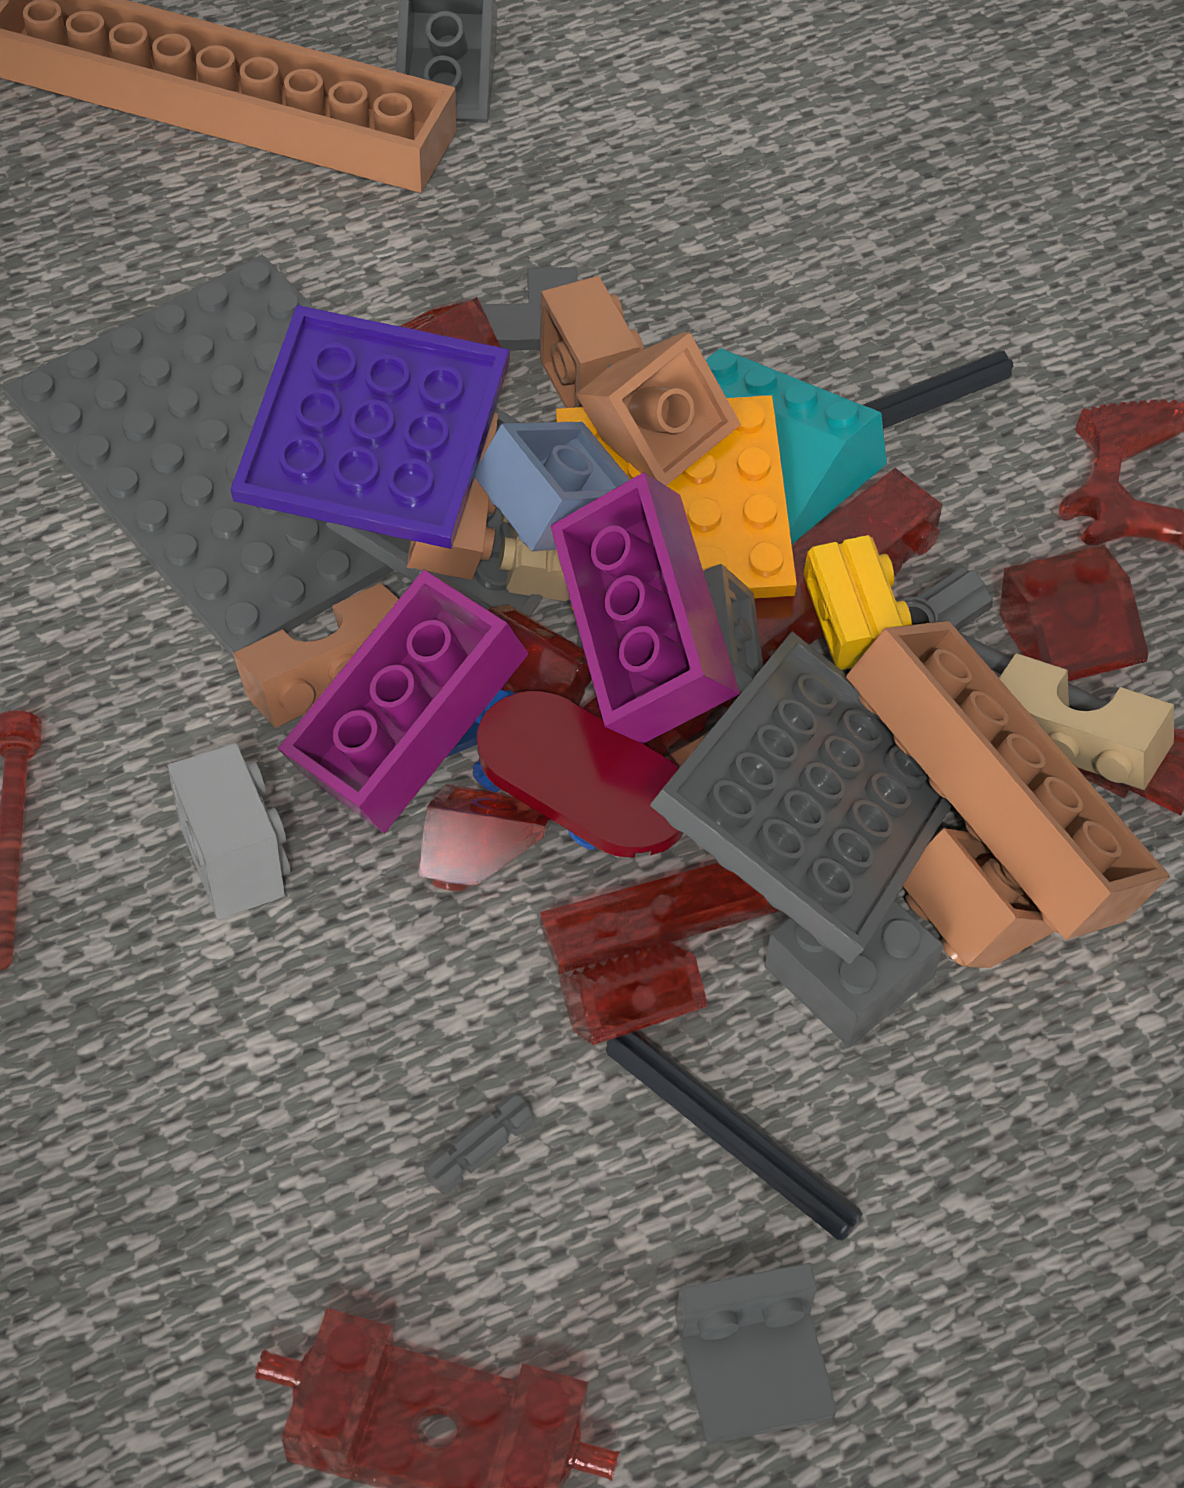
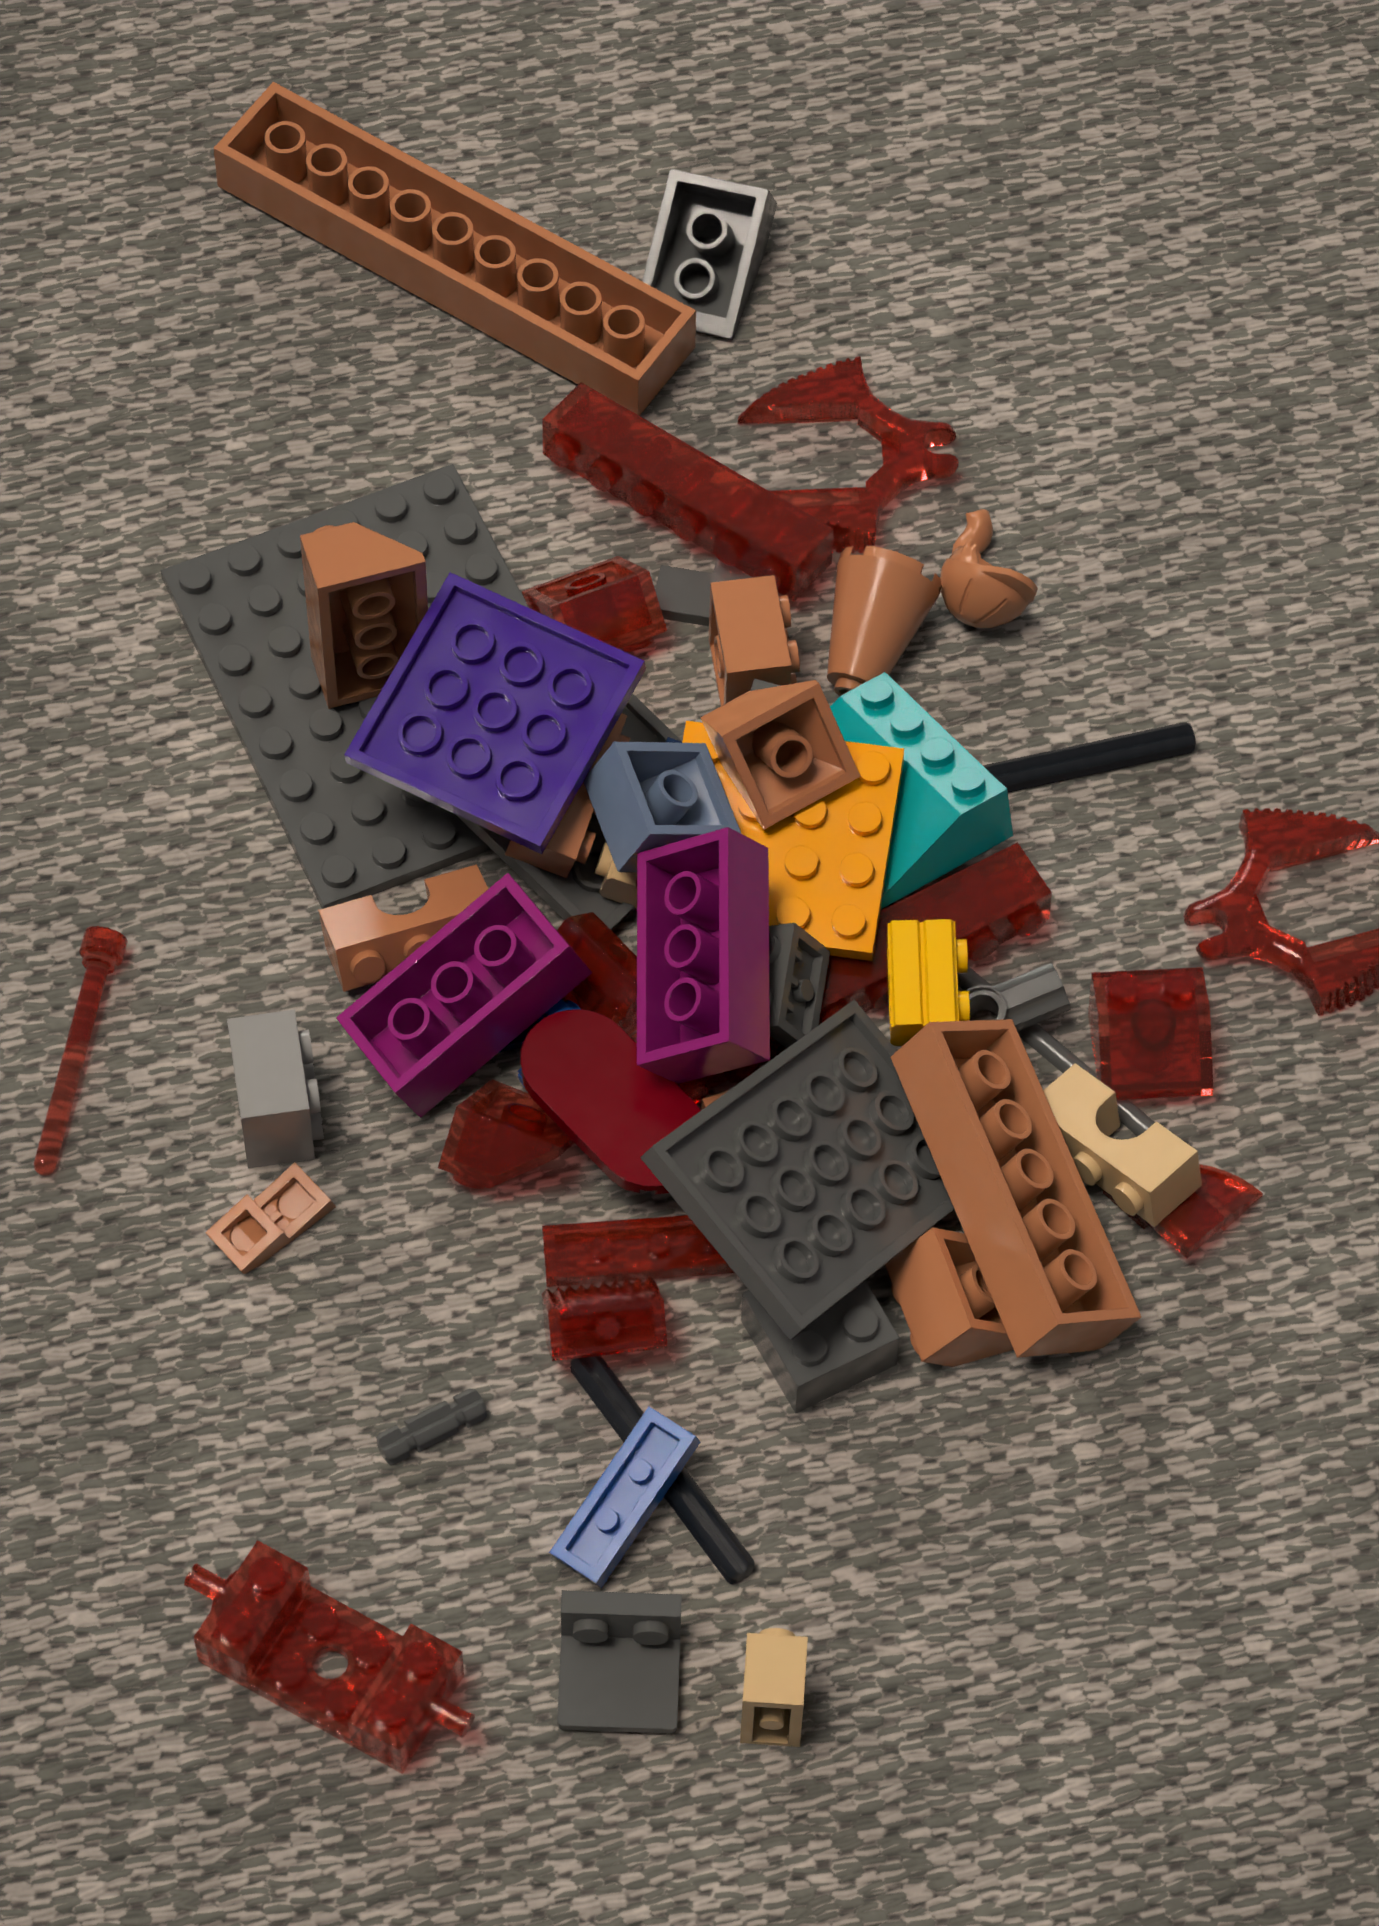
camera: 15 degrees right, 5 degrees up
(213, 354) = (361, 607): none -> nougat slope
(250, 971) = (263, 1226): none -> nougat slope
(482, 233) = (687, 491): none -> clear red brick
(629, 238) = (844, 395): none -> clear red piece
(694, 291) = (875, 613): none -> nougat cone
(708, 1172) = (625, 1497): none -> plate
(780, 270) = (977, 590): none -> nougat piece
(937, 1343) = (773, 1688): none -> tan brick

